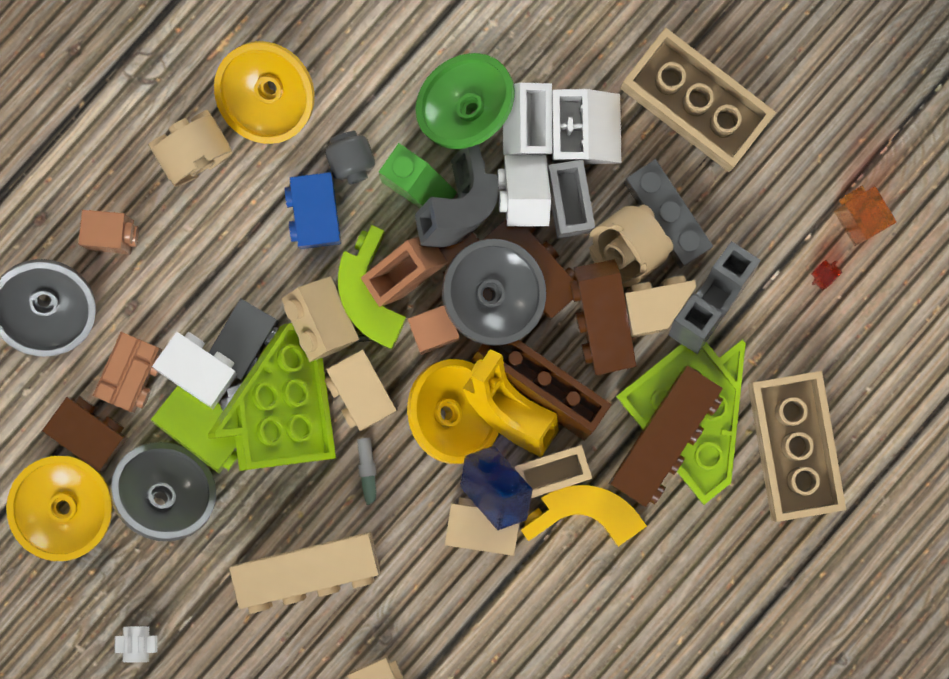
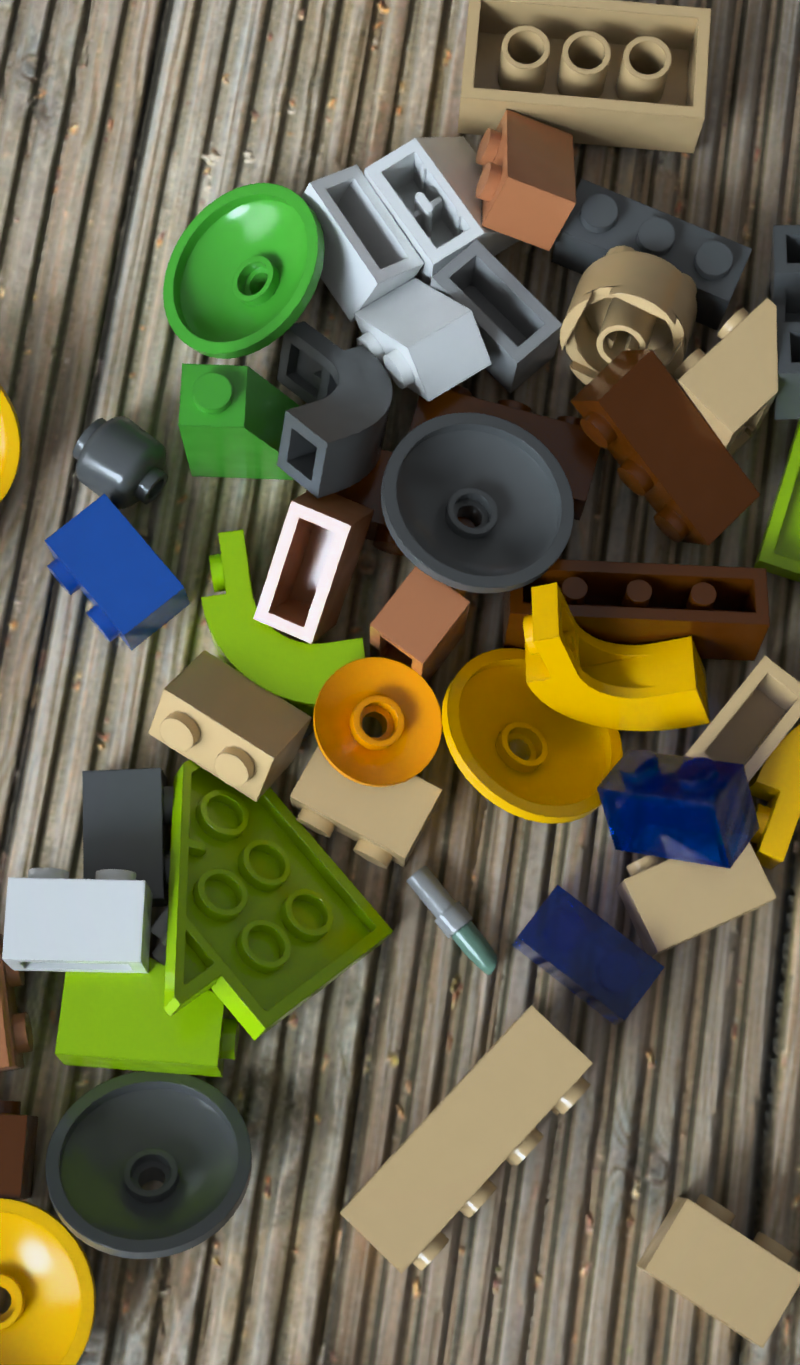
camera: 30 degrees left, 10 degrees down
(403, 364) = (398, 701): none -> light orange dish
(414, 525) = (588, 956): none -> clear blue brick
(629, 141) = (526, 179): none -> nougat brick

